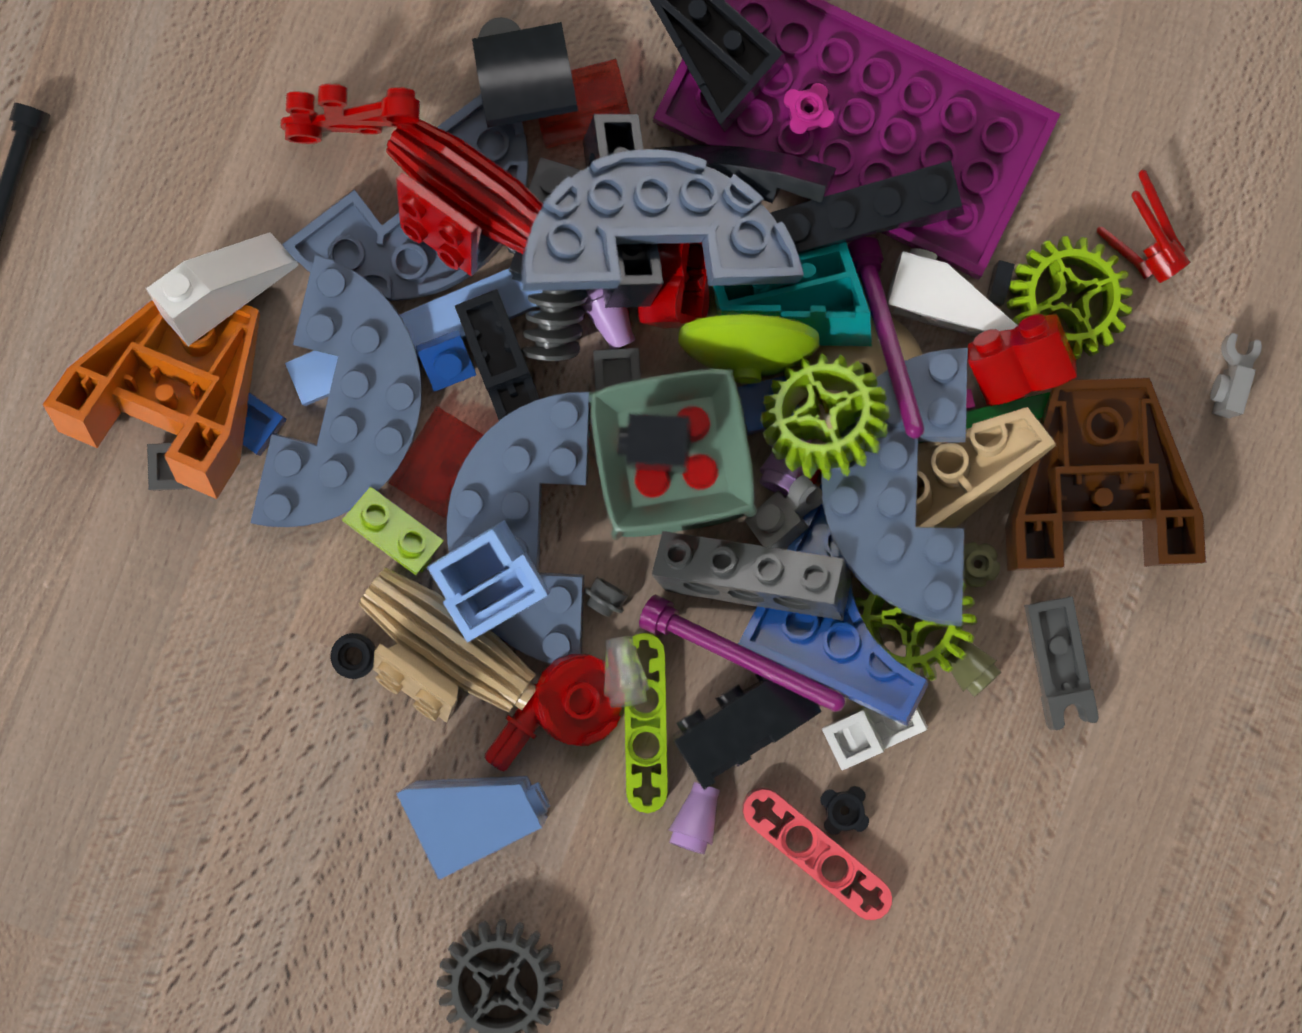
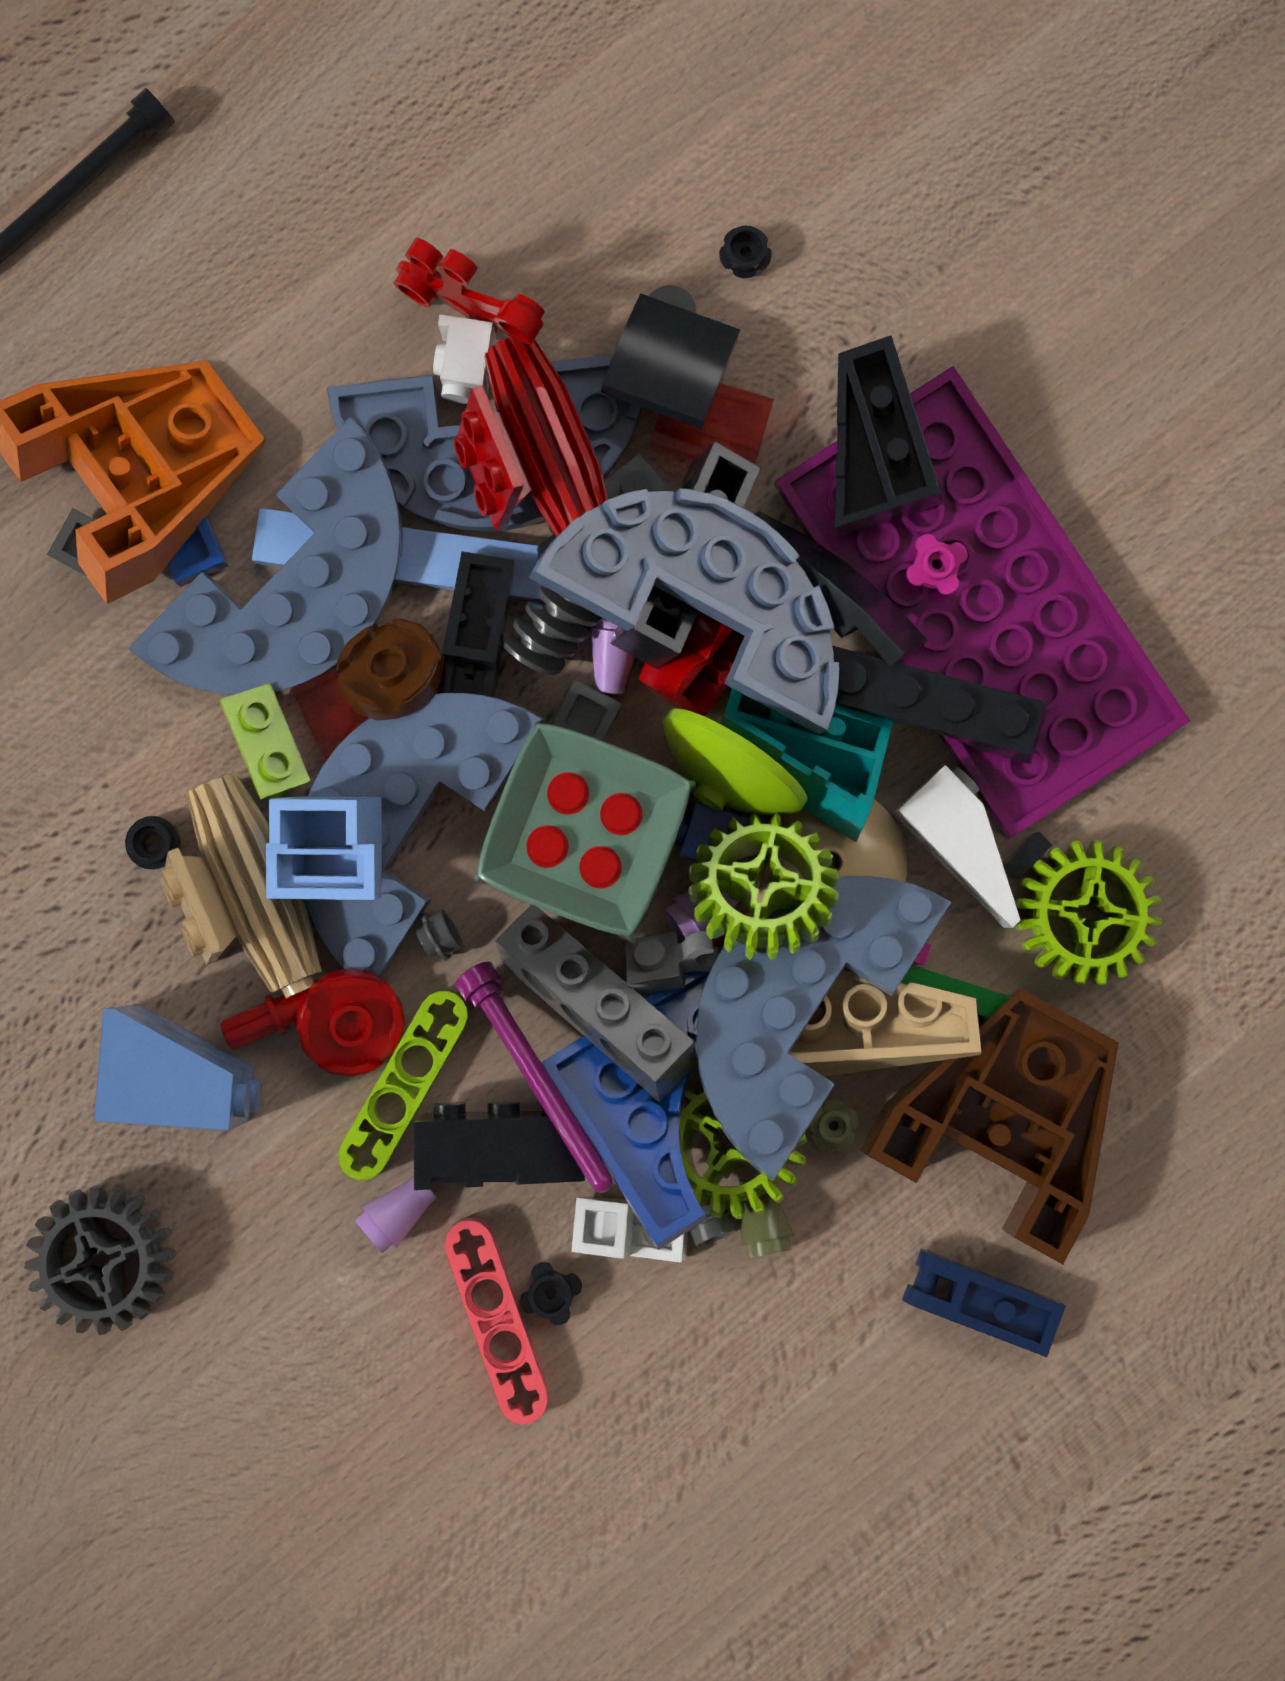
camera: 25 degrees right, 0 degrees up
(218, 284) = (239, 389): white slope -> none
(370, 162) = (462, 358): none -> white brick
(446, 360) = (423, 599): blue plate -> none
(454, 423) = (389, 669): none -> reddish brown tile
(624, 673) = (409, 1023): clear cone -> none
(656, 442) = (569, 812): black brick -> none
(867, 262) = (903, 752): magenta piece -> none
(935, 691) = (712, 1228): none -> dark grey plate
(1022, 359) = (1000, 946): red brick -> none
(1060, 661) = (858, 1273): dark grey plate -> none
(1164, 255) = (1211, 925): red plant -> none
(1166, 627) = (986, 1303): none -> dark blue plate
(1233, 386) = (1201, 1101): light grey plate -> none

